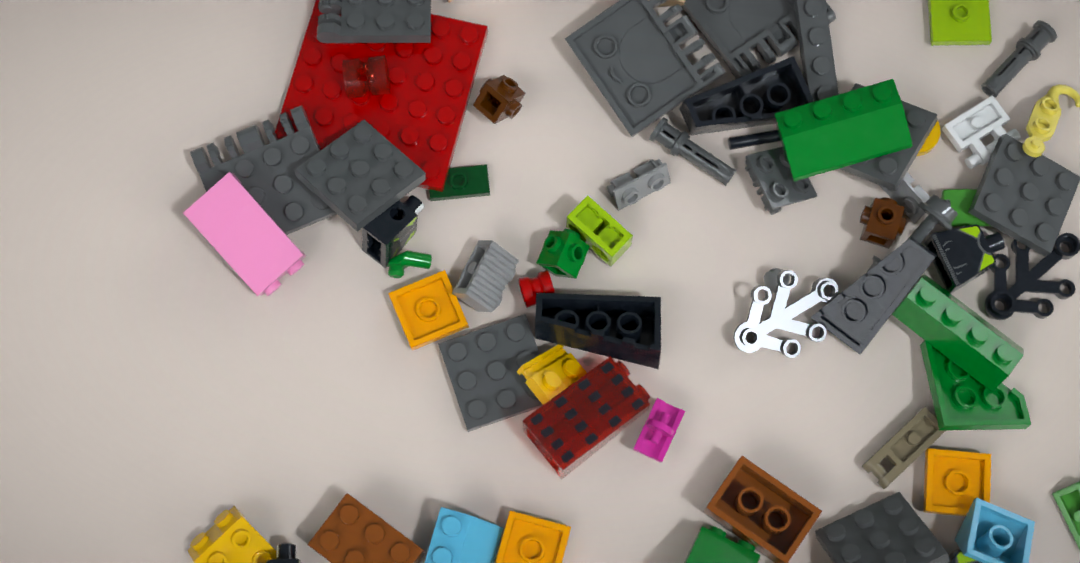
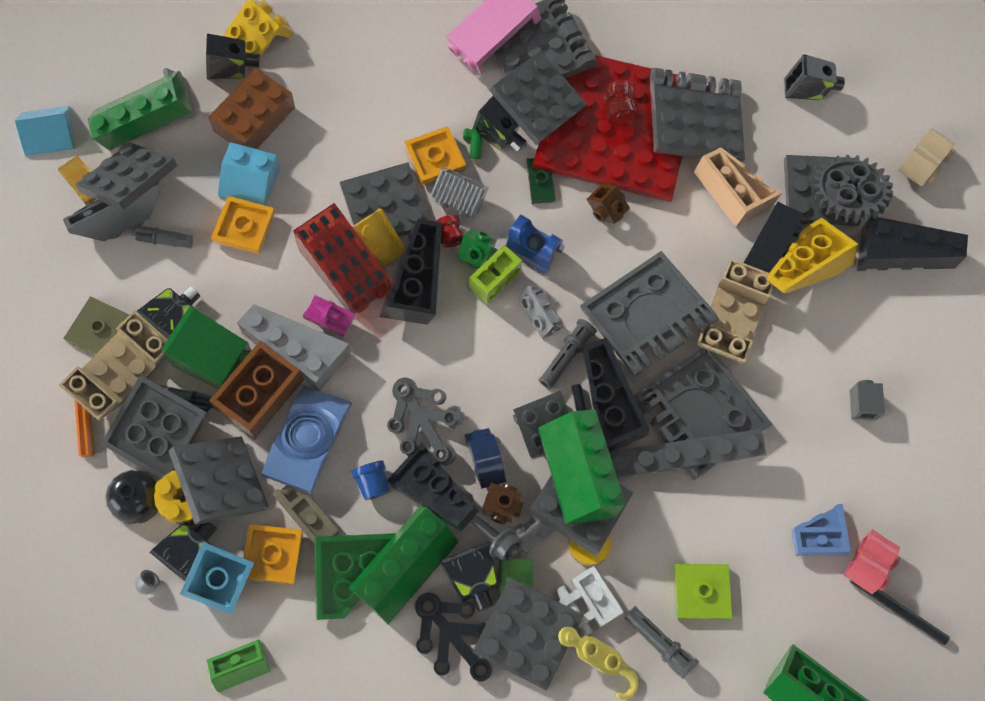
camera: 85 degrees right, 5 degrees down
(558, 182) = (532, 244): none -> blue piece
(703, 463) = (304, 347): none -> light grey wedge
(816, 449) = (306, 439): none -> medium blue slope
(825, 240) = (485, 457): none -> dark blue brick
(862, 370) = (372, 480): none -> blue piece

